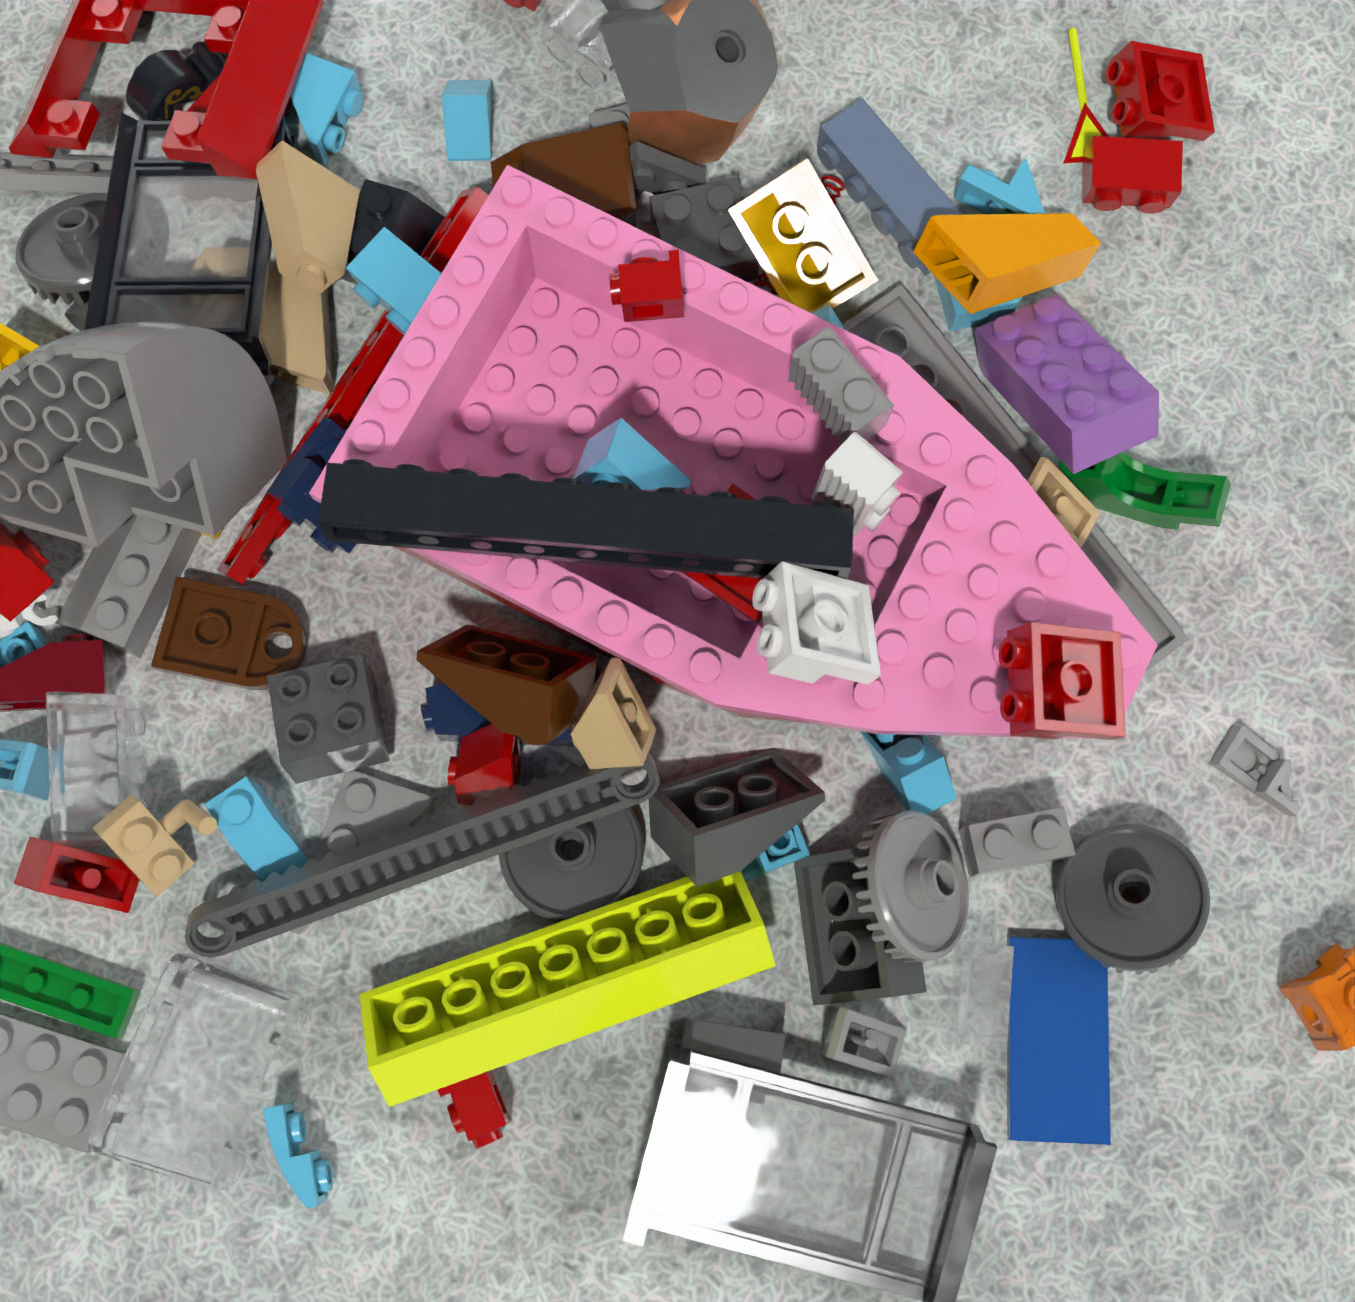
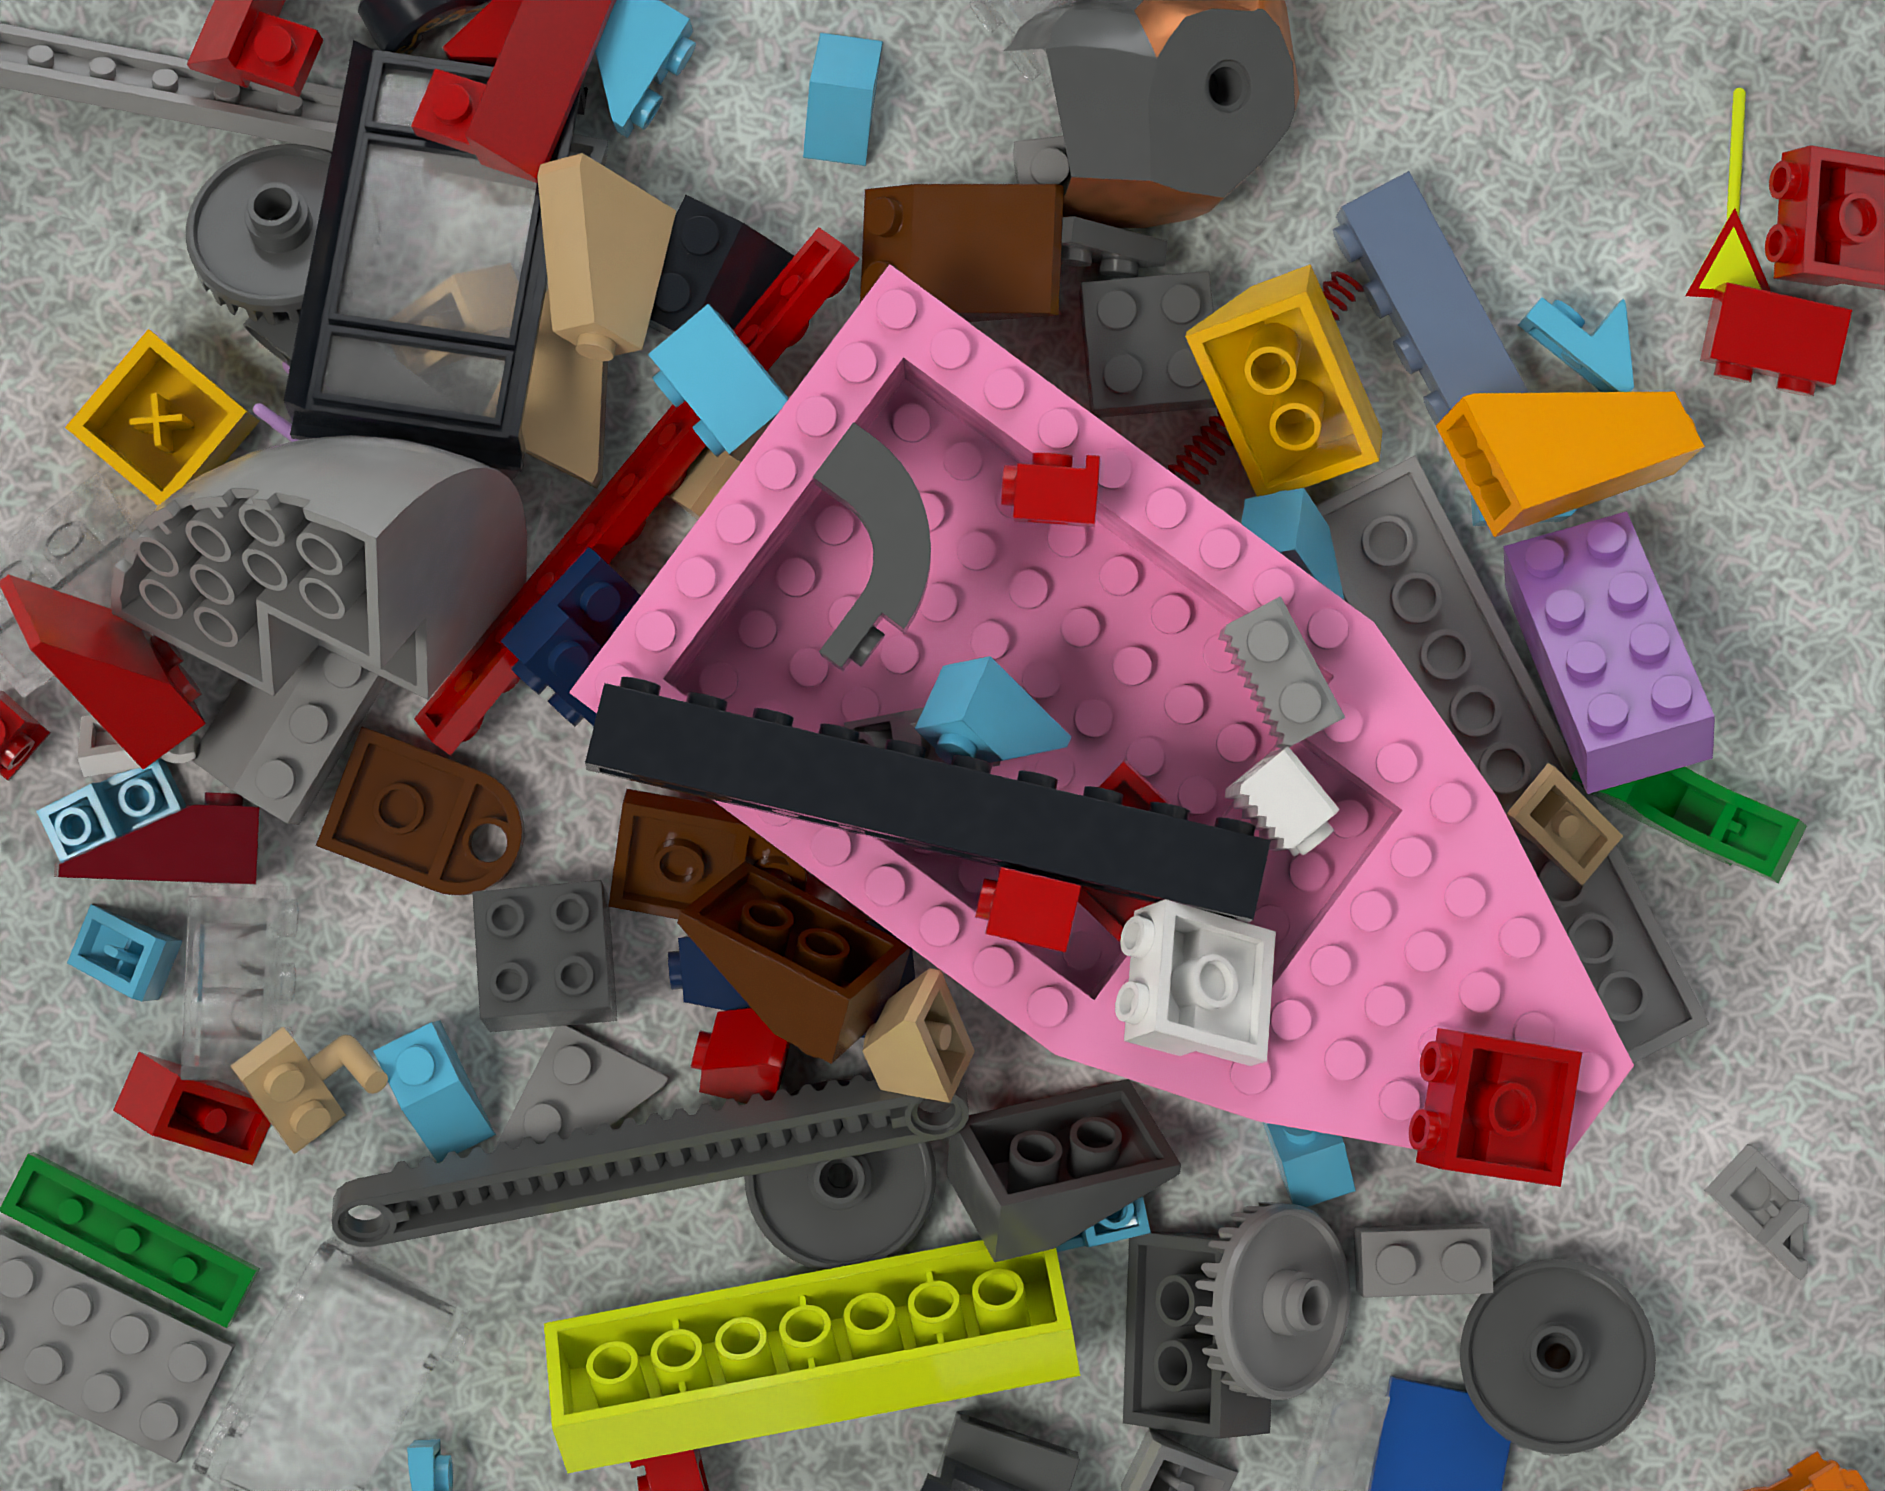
camera: 10 degrees right, 10 degrees up
(415, 616) = (680, 849): none -> reddish brown plate
(524, 312) = (887, 502): none -> dark grey arch
(678, 588) = (1028, 908): none -> red brick

